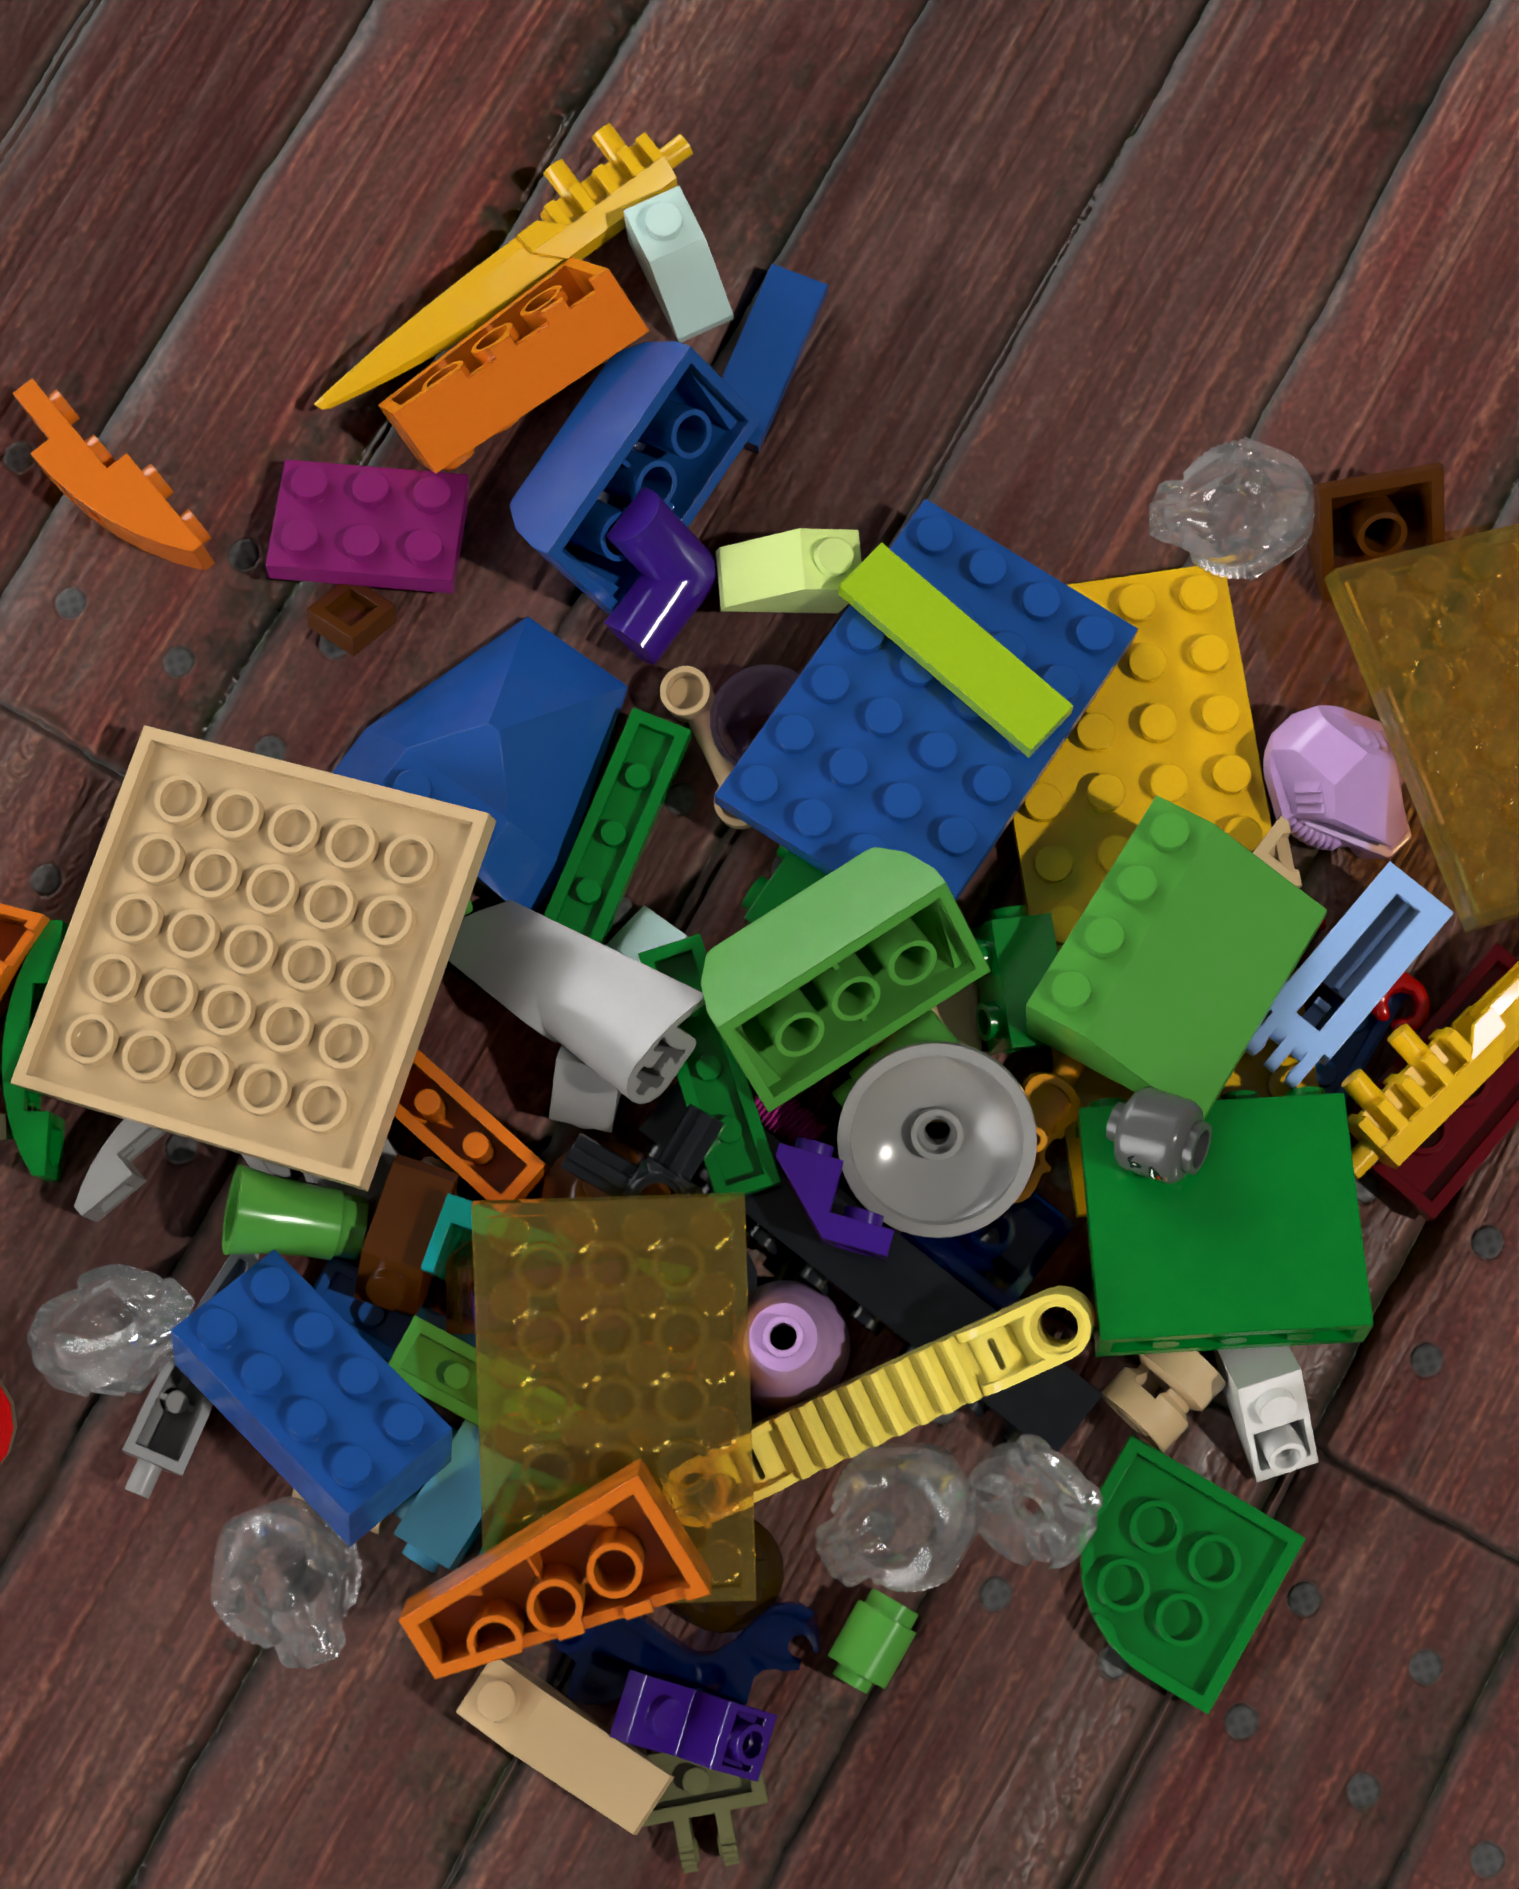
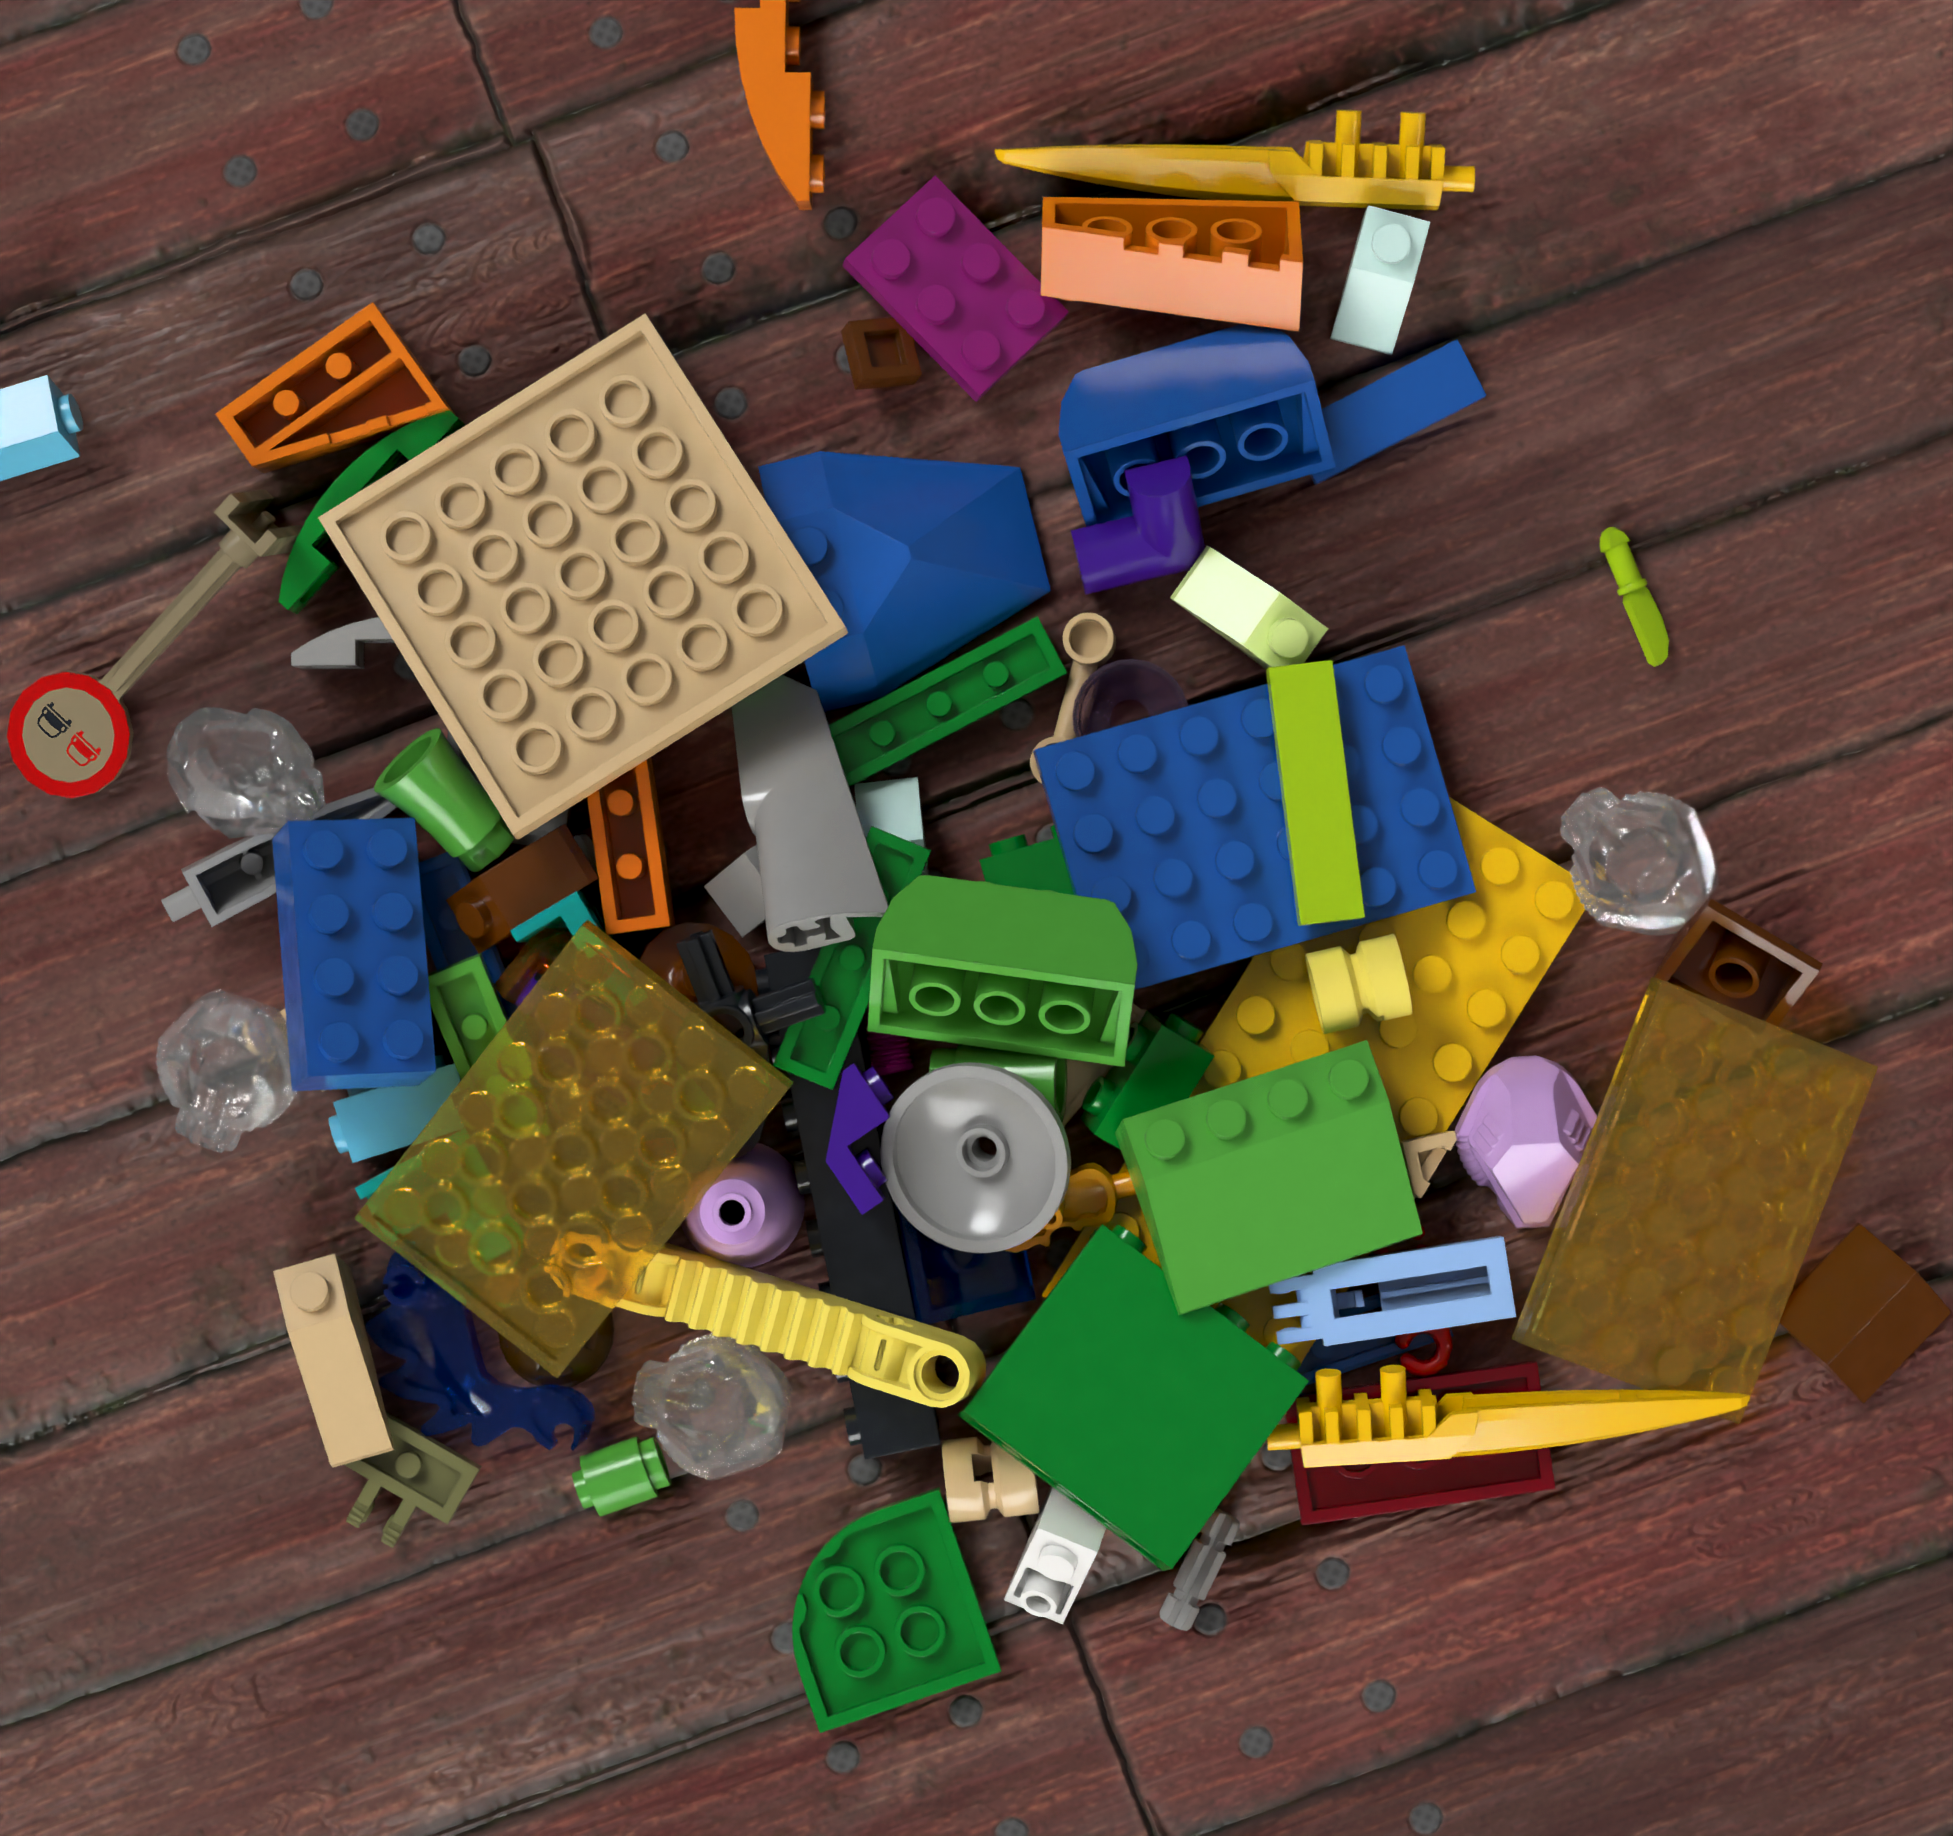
camera: 30 degrees right, 10 degrees up
(576, 1568) = (425, 1245): orange wedge -> none
(693, 1725) = (438, 1426): dark purple slope -> none
(1051, 1480) = (845, 1497): clear plate -> none
(1062, 336) = (1636, 597): none -> lime piece
(1117, 758) = (1359, 983): none -> light yellow wheel
(1159, 1135) = (1137, 1299): dark grey head -> none
(1389, 1331) = (1199, 1570): none -> light grey axle

